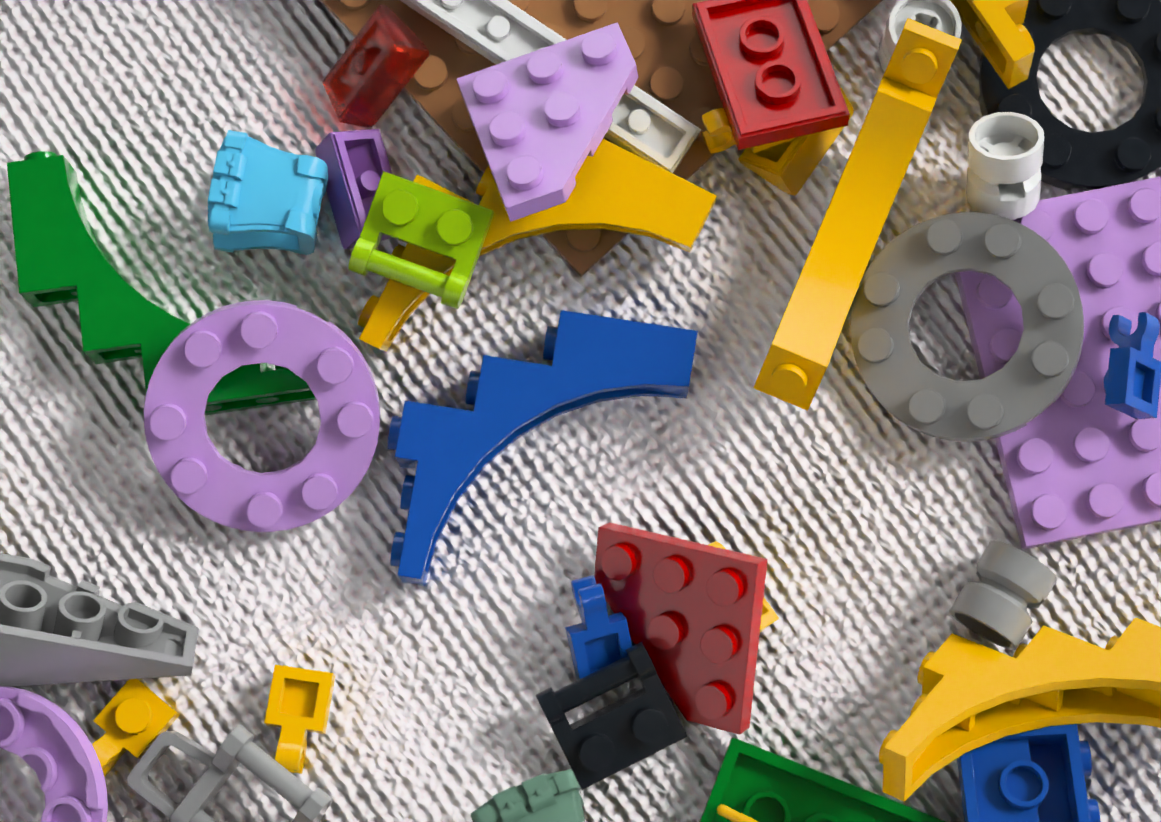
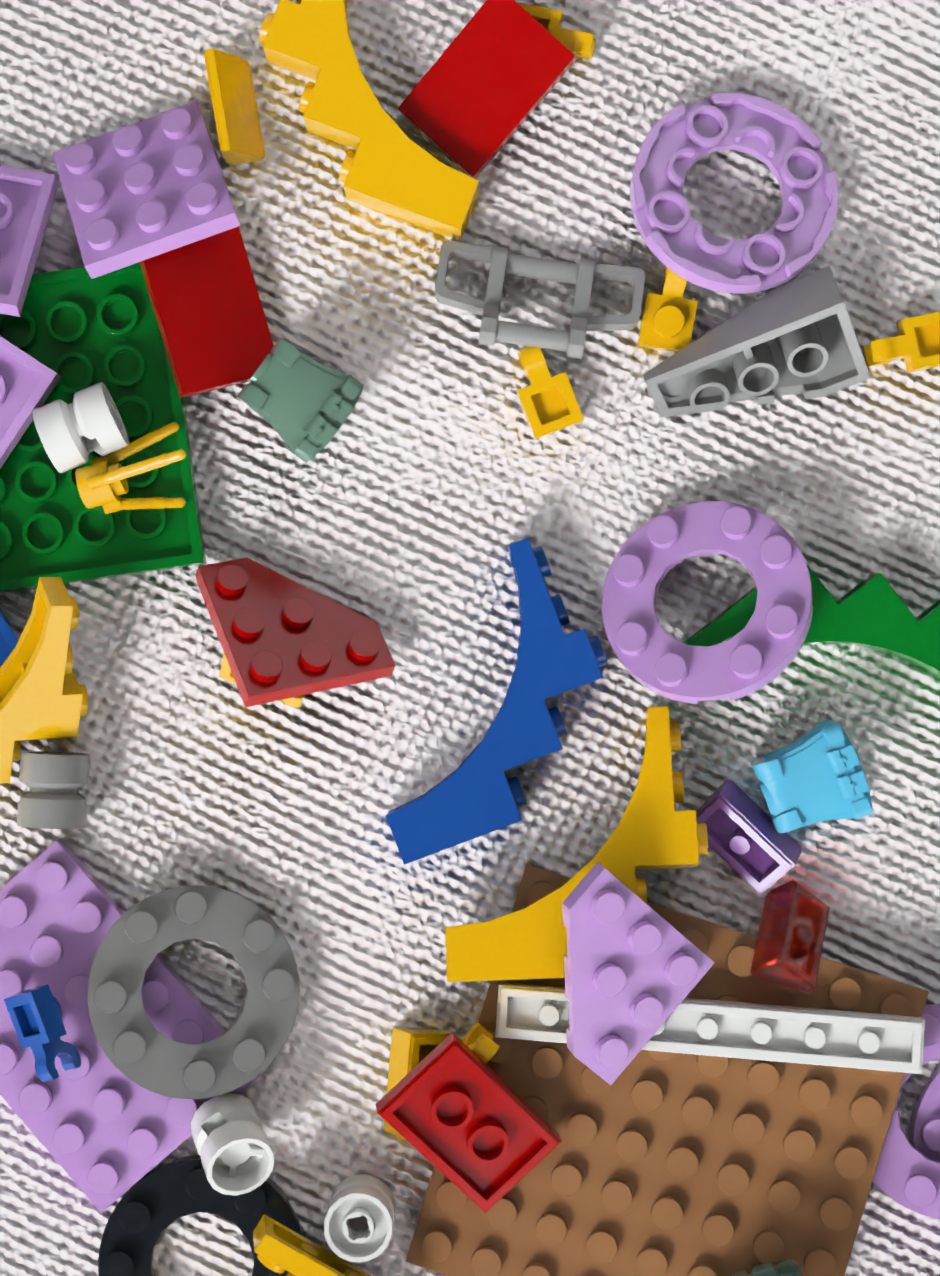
camera: 150 degrees right, 10 degrees up
(429, 222) = (664, 828): lime plate -> none
(600, 636) = (344, 579): blue plate -> none
(619, 732) = (293, 519): black plate -> none
(856, 214) = (328, 1030): yellow arch -> none

